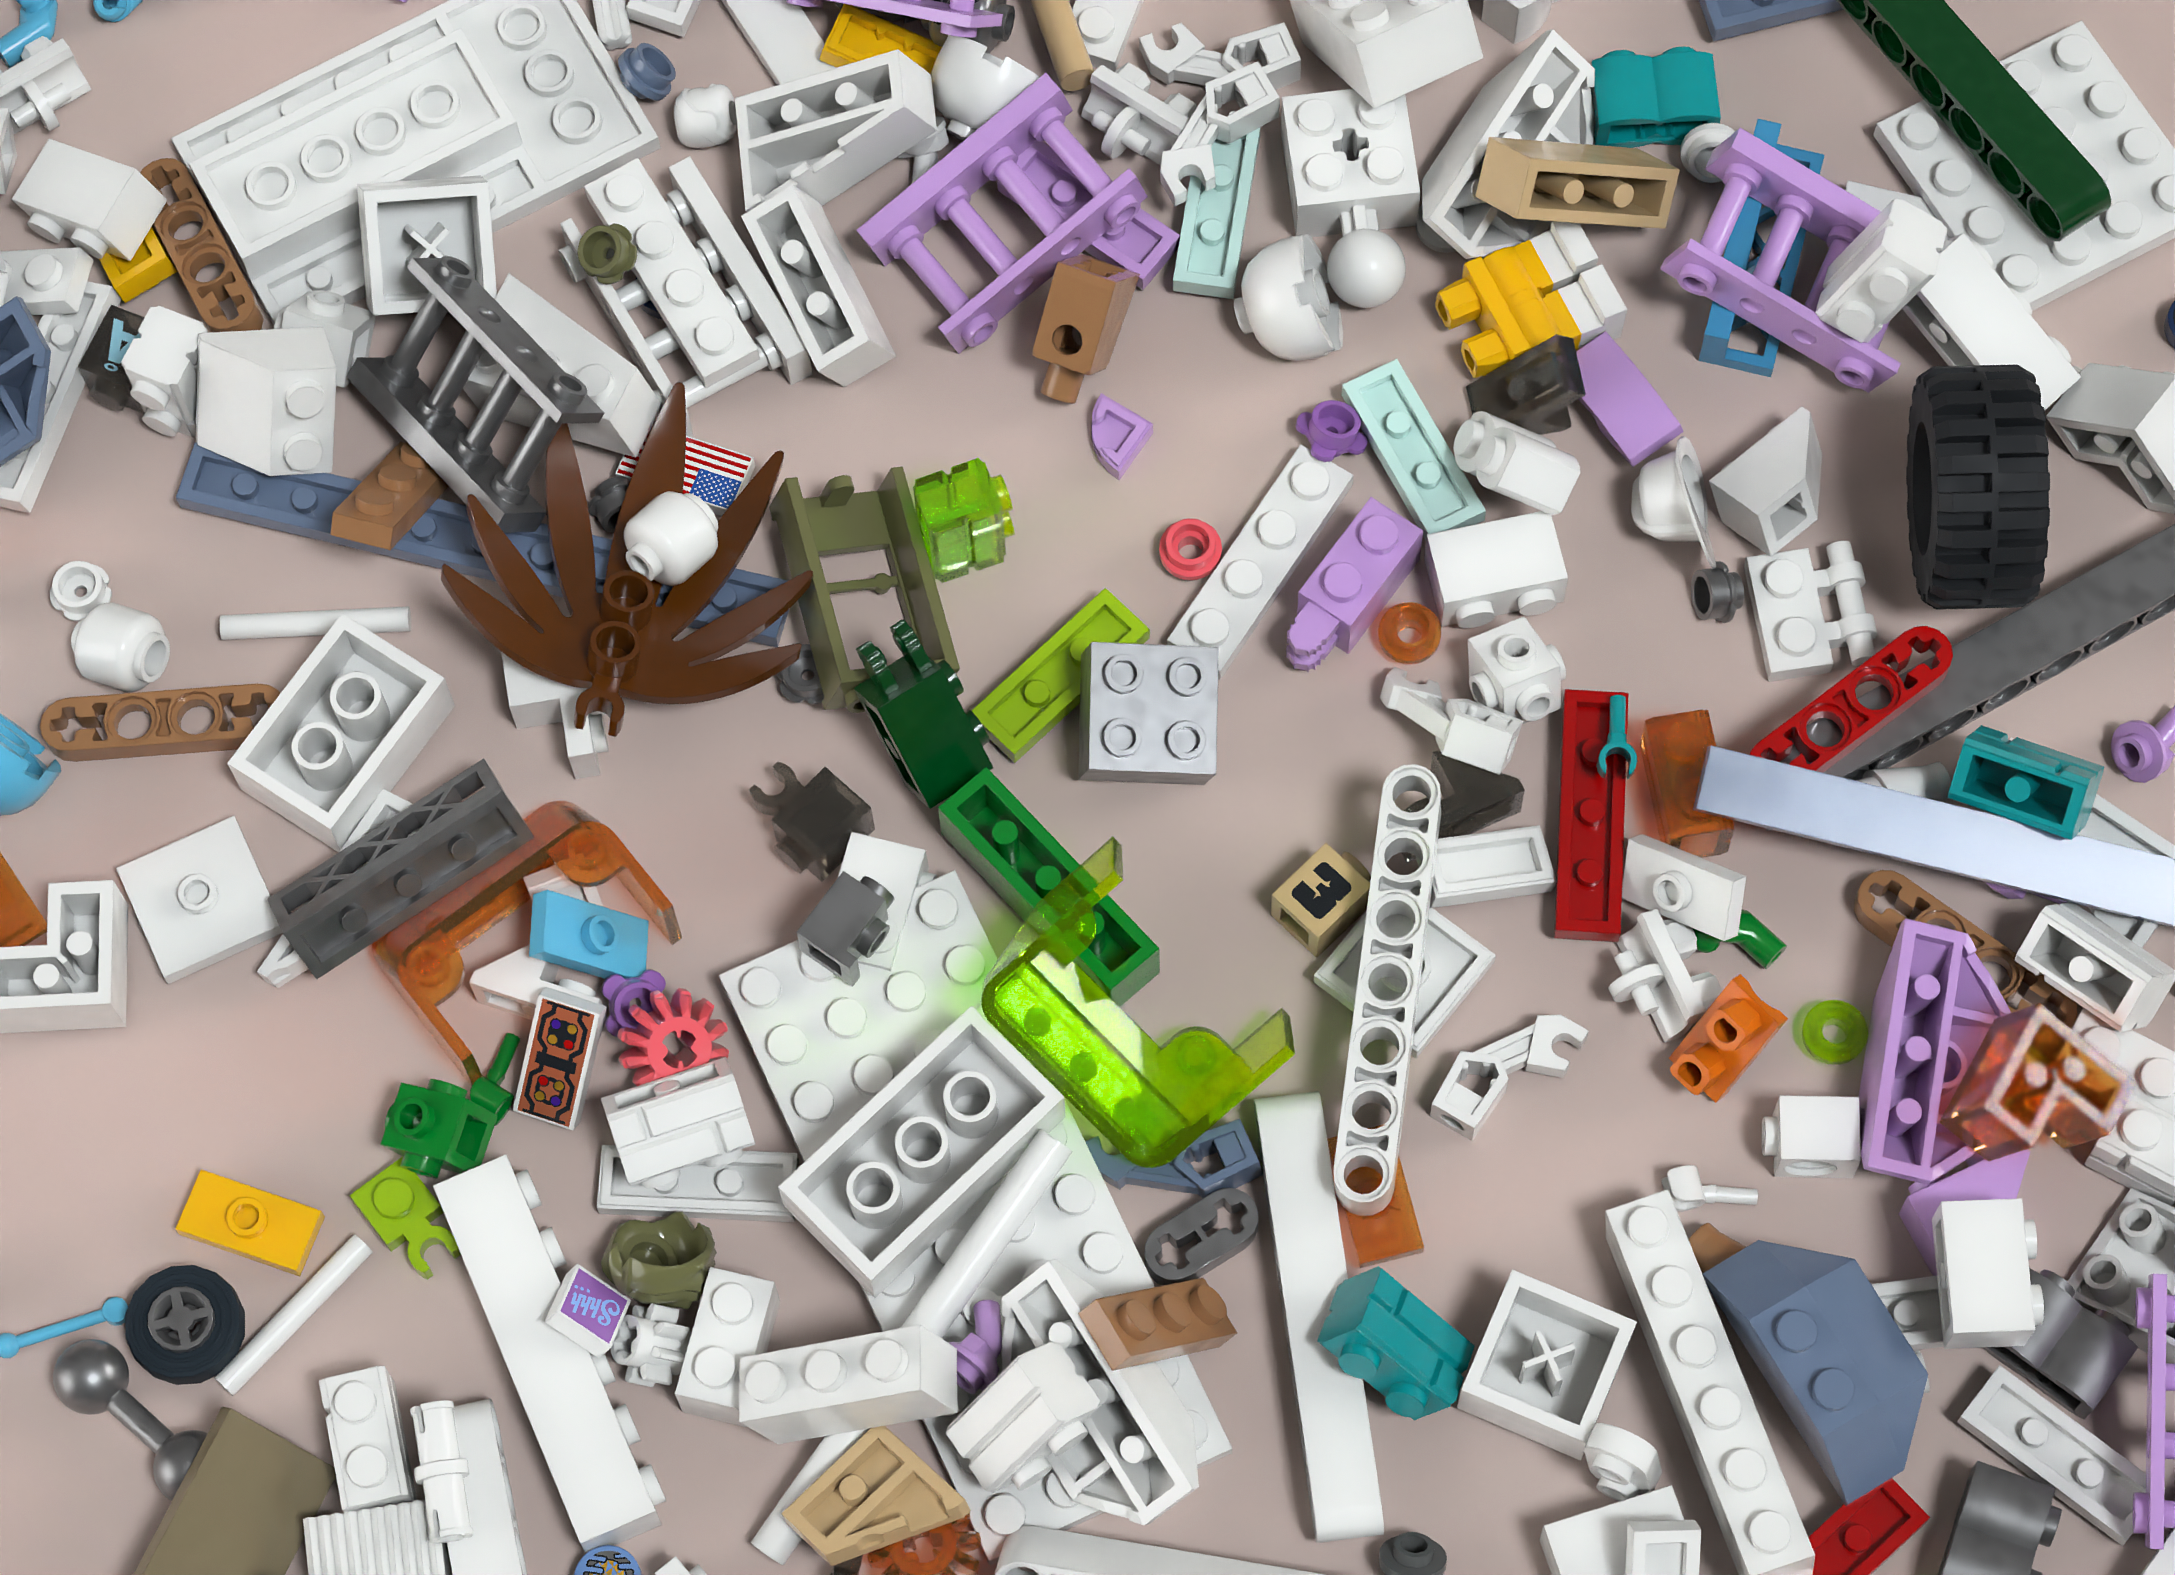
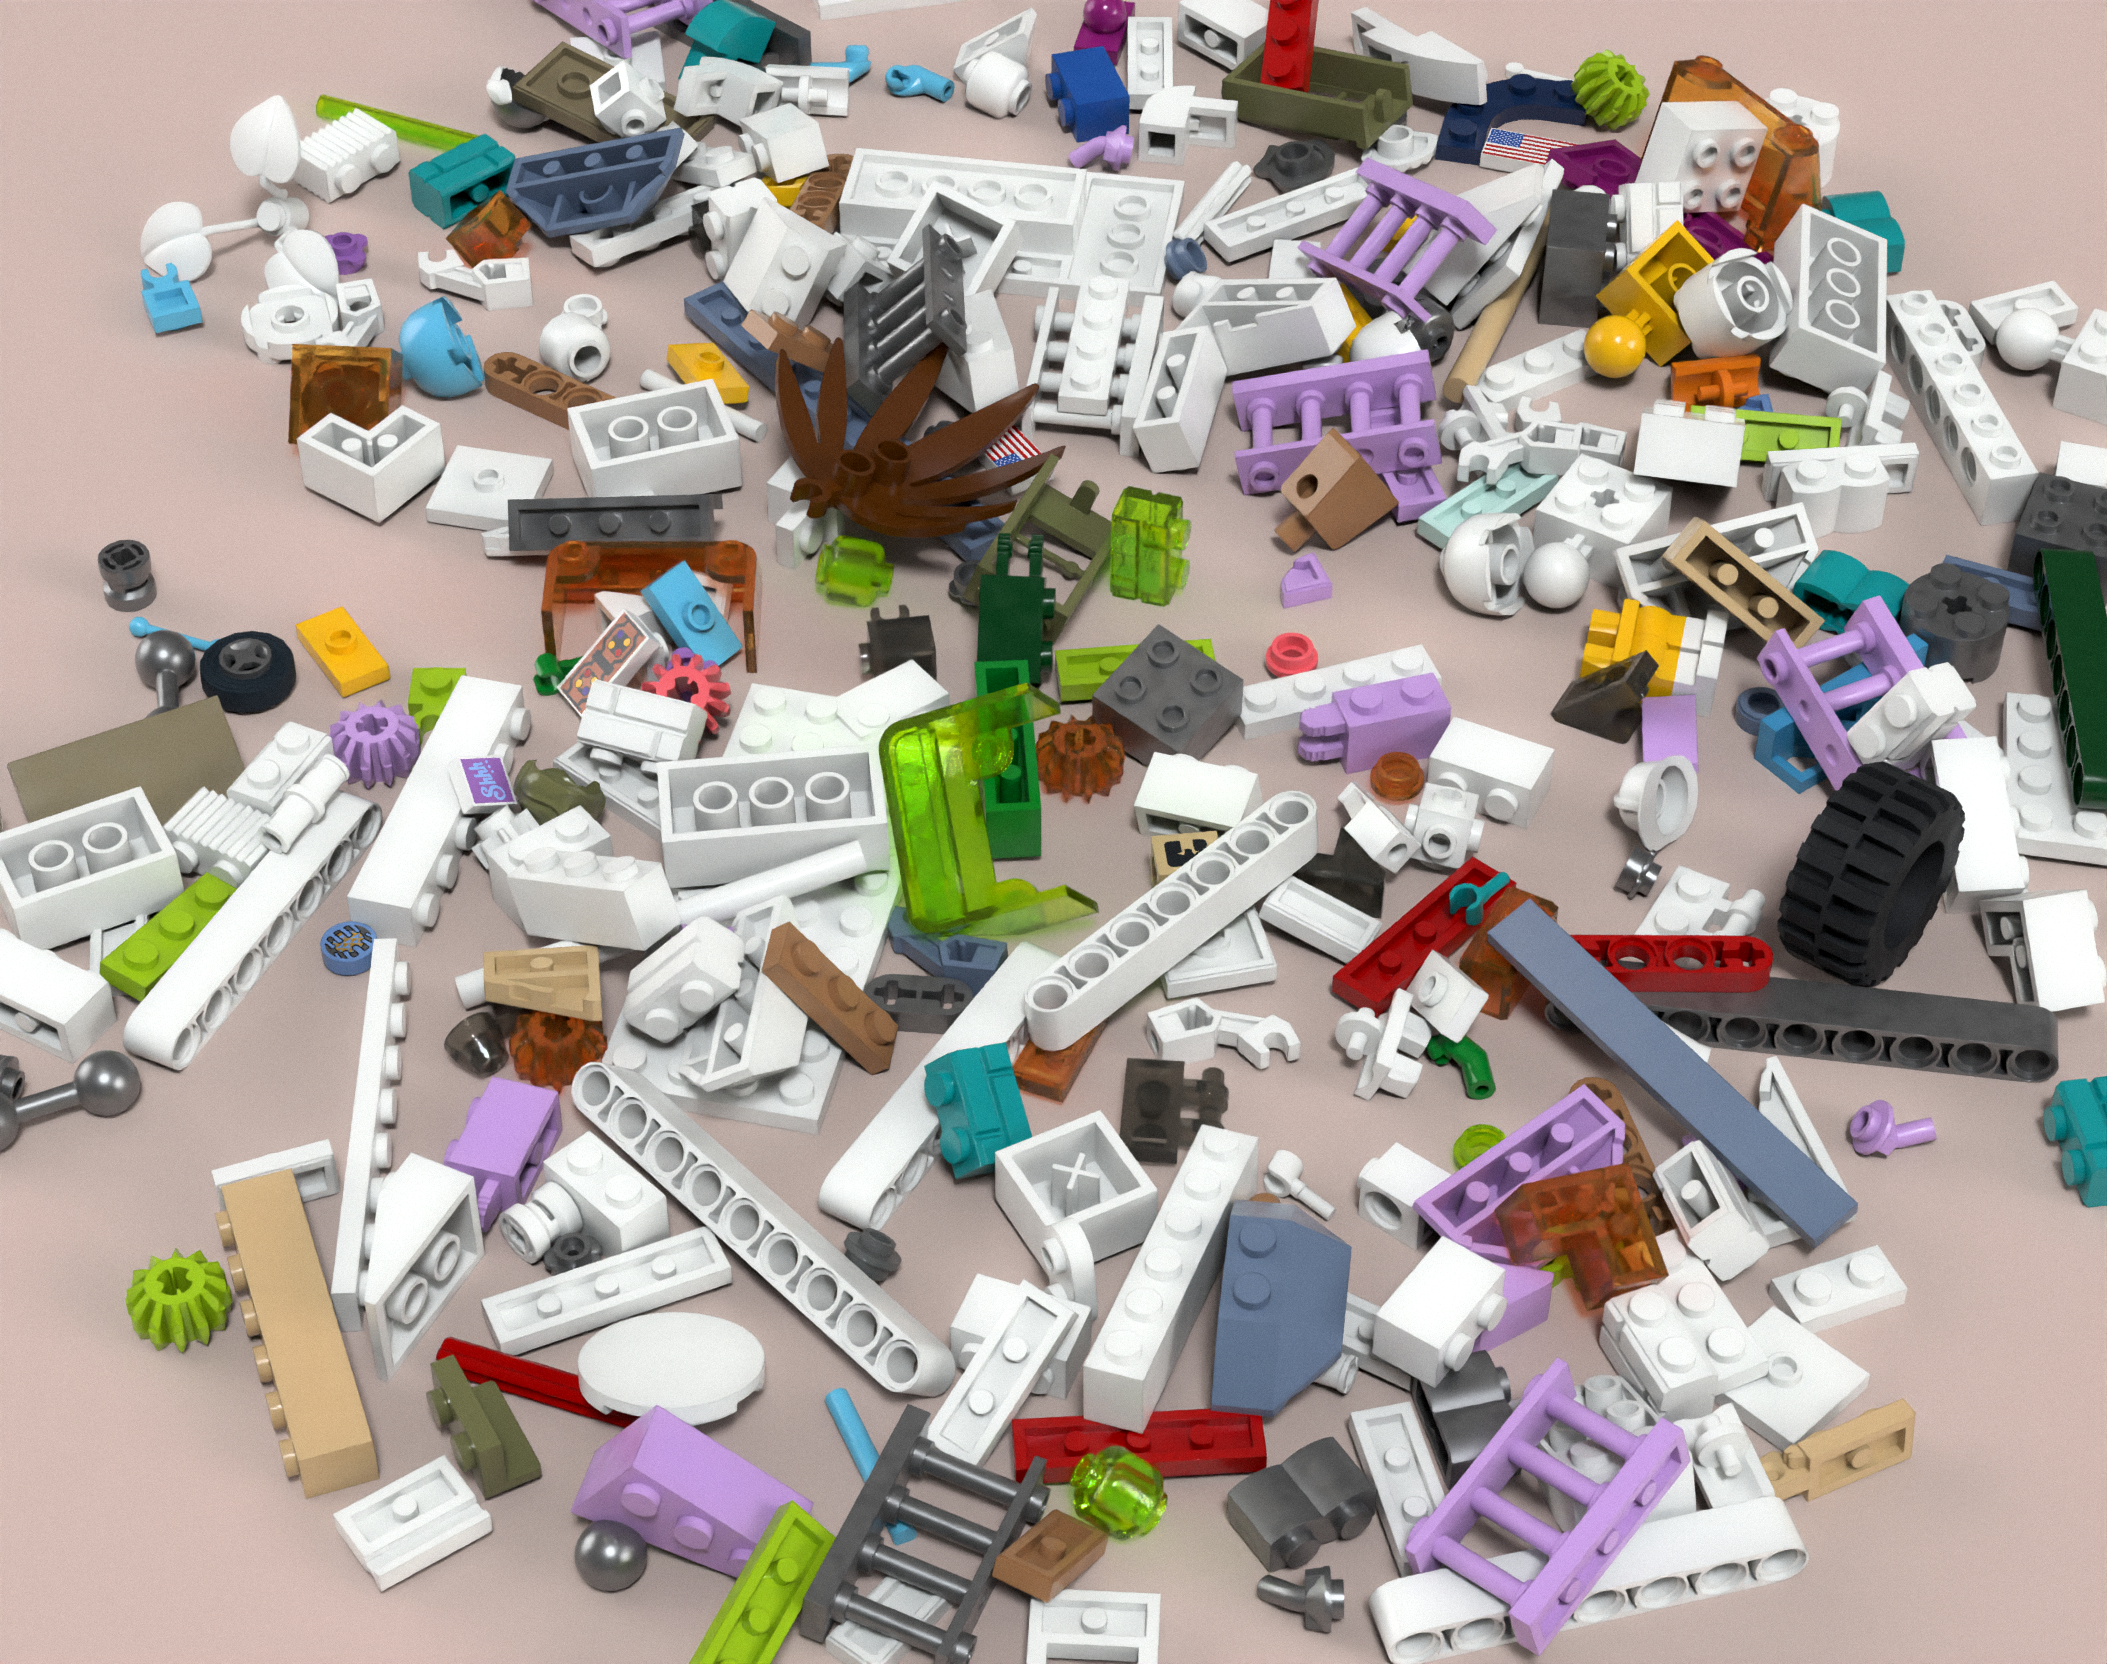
camera: 35 degrees right, 25 degrees down
(290, 582) = (705, 361): none -> yellow plate
(293, 1315) = (309, 709): white bar -> none
(403, 1301) = (376, 743): none -> lavender gear
(437, 1129) = (497, 652): green brick -> none
(594, 249) = (1060, 305): olive plate -> none
(671, 537) = (948, 444): white head -> none
(681, 749) = (853, 571): none -> clear neon green head
(846, 924) = (851, 683): flat silver brick -> none
(1108, 807) = (1080, 758): none -> clear orange gear
(1270, 810) = (1194, 796): none -> white brick
(1332, 430) = (1450, 648): medium lavender plate -> none
(1413, 450) = (1497, 678): light aqua plate -> none
(1516, 462) = (1552, 705): white brick -> none
(1520, 1206) = (1154, 1103): none -> clear smoke plate
(1665, 303) = (1755, 705): none -> sand blue tile
(1725, 1040) = (1396, 1096): orange hips -> none
(1773, 485) = (1739, 830): white slope -> none
(1775, 68) = (1958, 618): none -> flat silver brick
(2025, 782) = (1754, 1064): teal brick -> none

